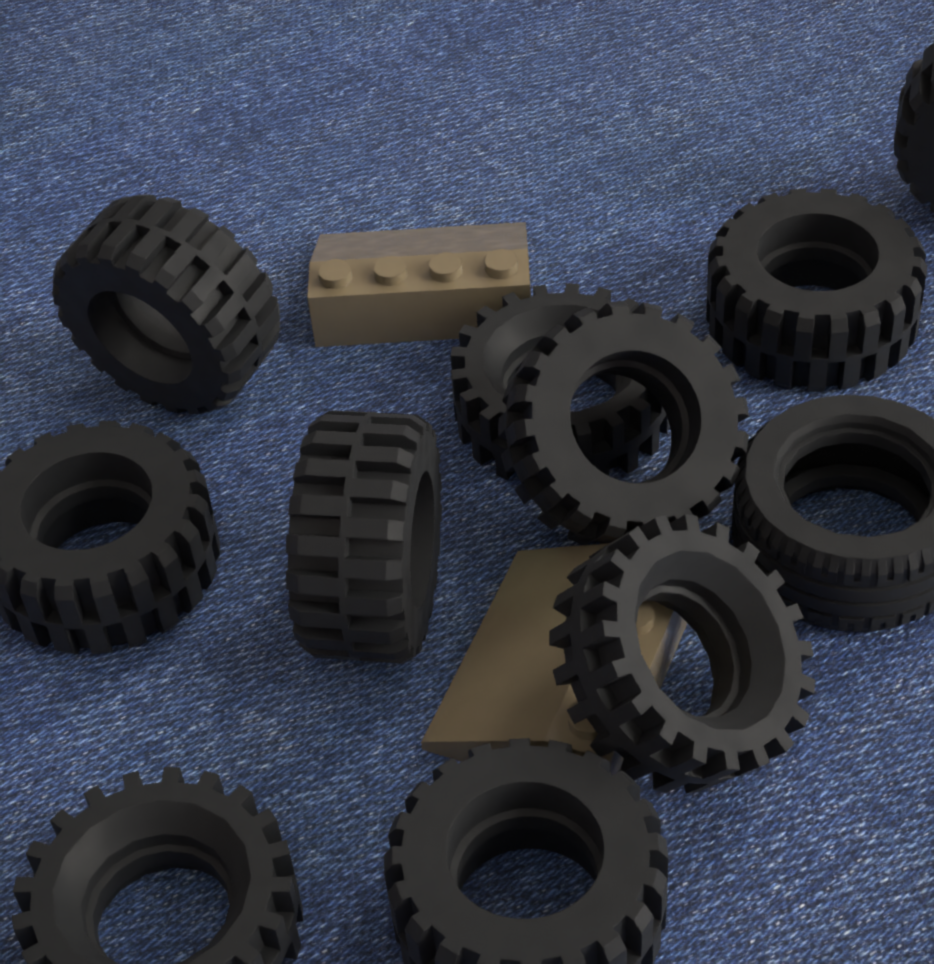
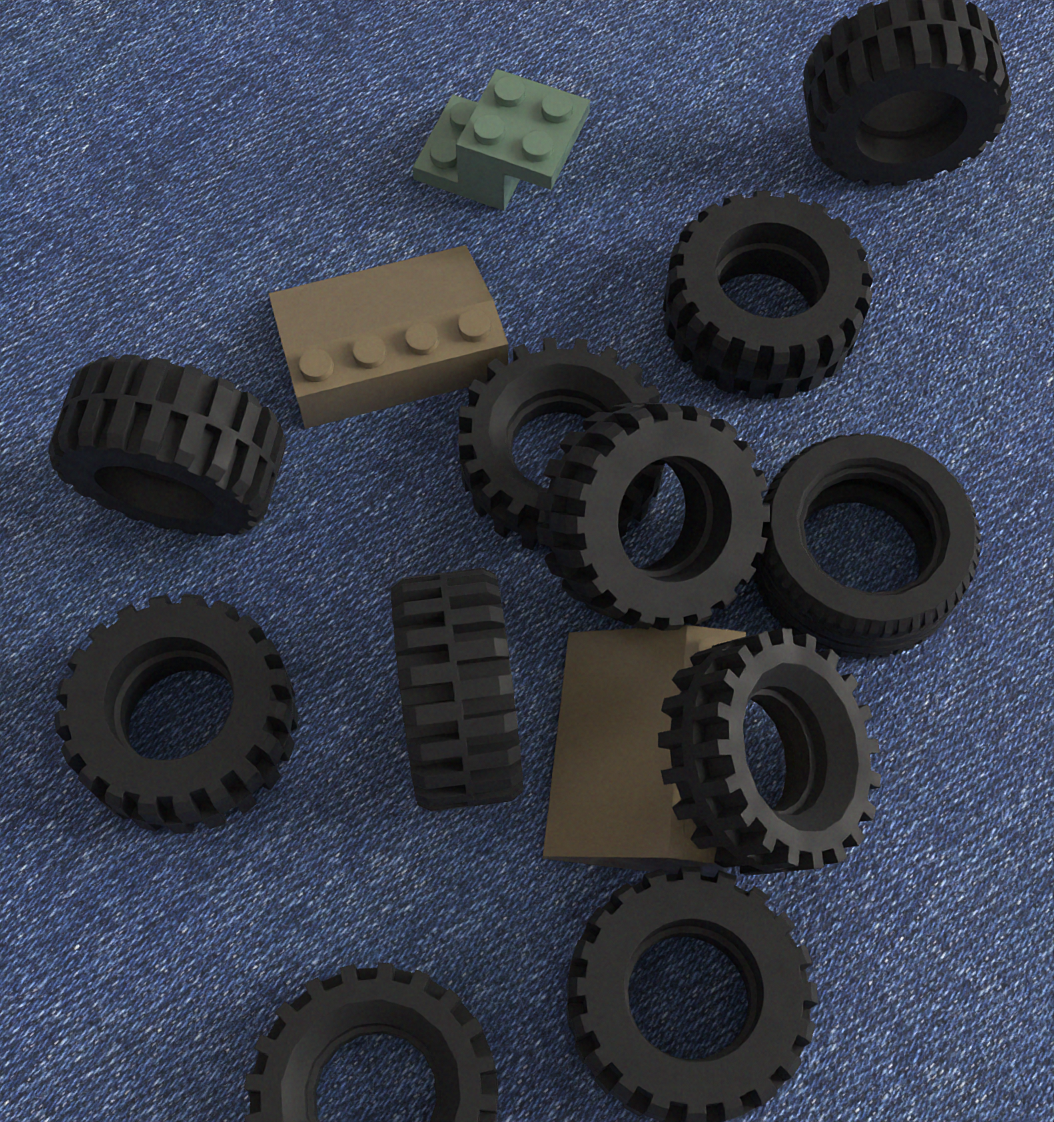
camera: 20 degrees left, 20 degrees up
(584, 136) = (507, 136): none -> sand green bracket

